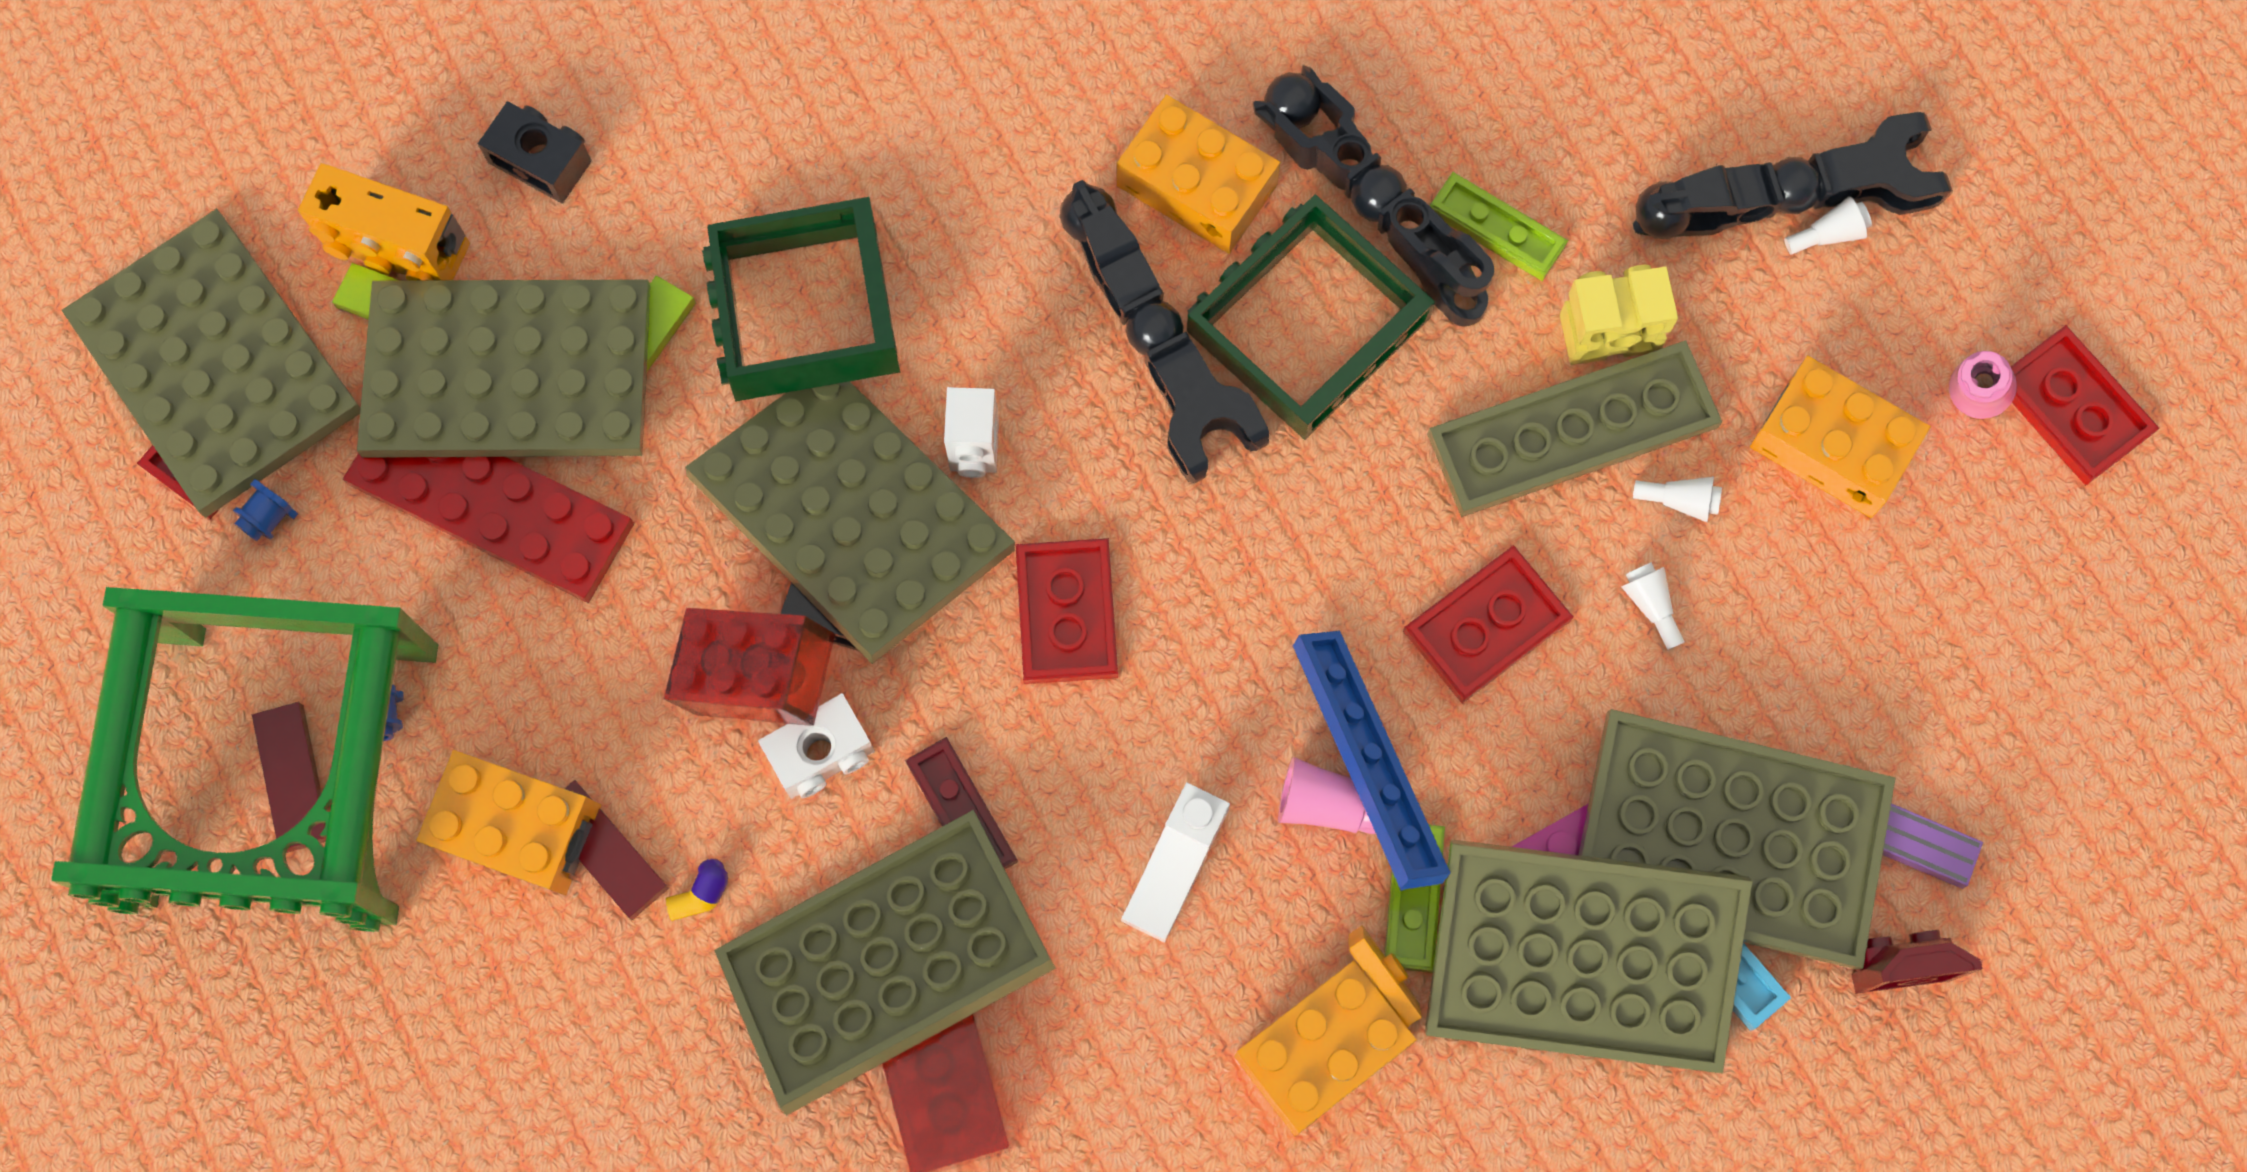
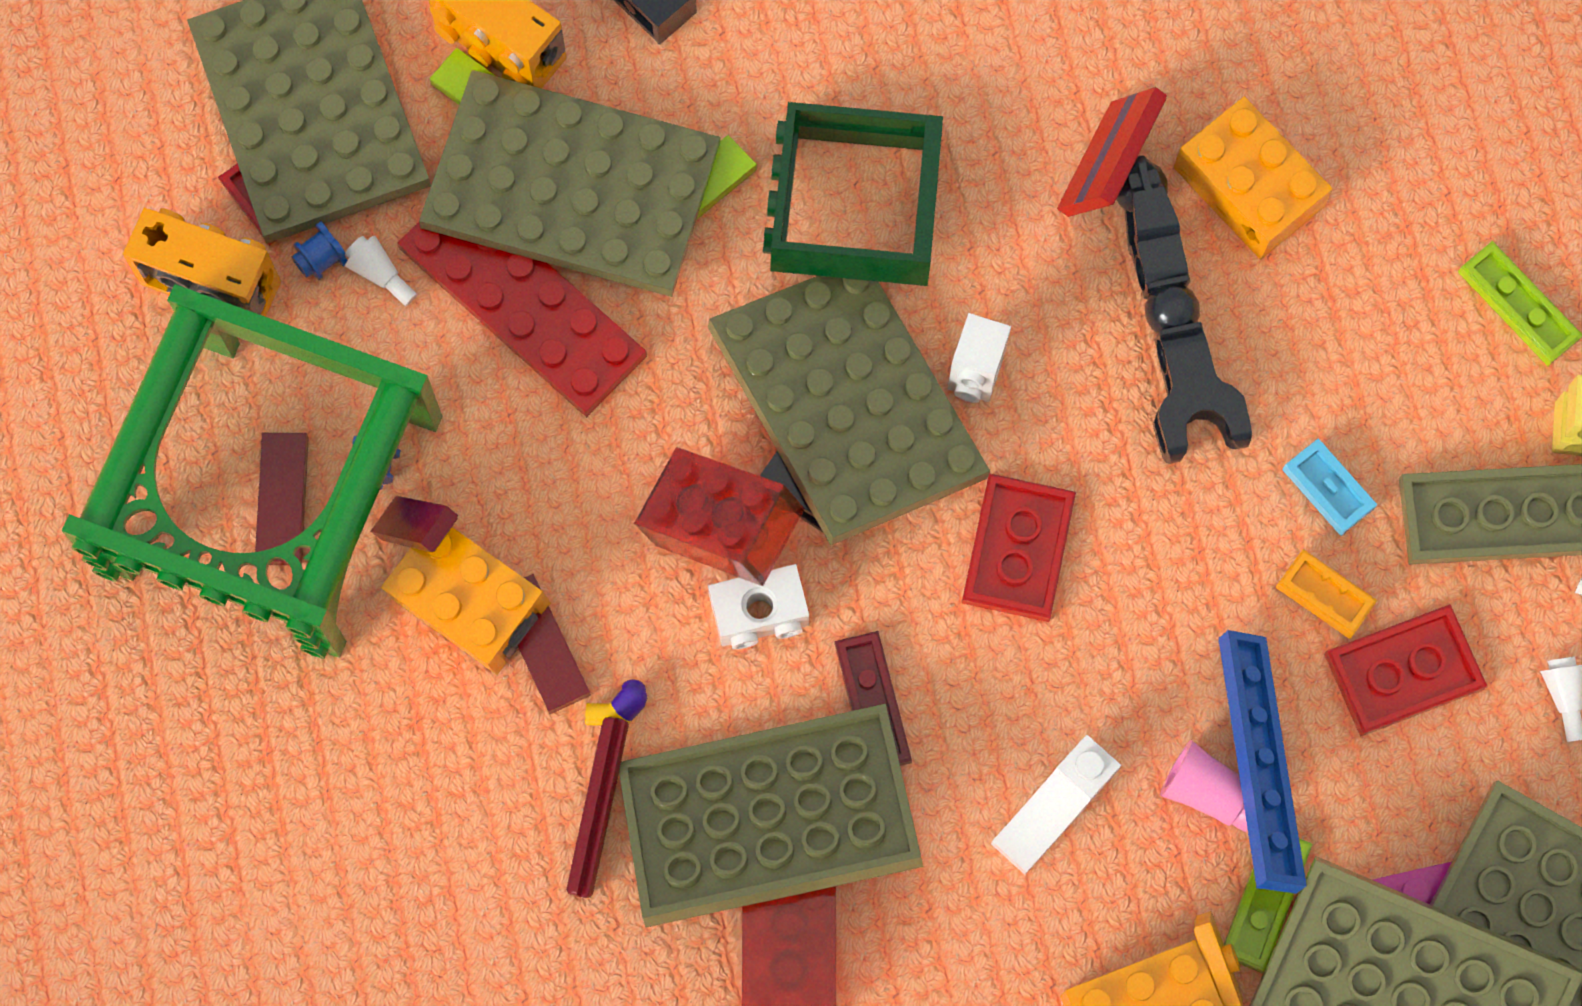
camera: 15 degrees right, 0 degrees up
(138, 554) = (202, 259): none -> light orange piece
(320, 506) = (372, 262): none -> white cone
(434, 764) = (415, 523): none -> dark red tile
(706, 1003) = (597, 807): none -> dark red axle
(1050, 186) = (1112, 152): none -> red tile
(1266, 253) = (1296, 268): dark green window -> none
(1361, 461) = (1329, 487): none -> medium azure plate
(1378, 192) = (1416, 241): black piece -> none
(1387, 569) = (1326, 593): none -> light orange plate

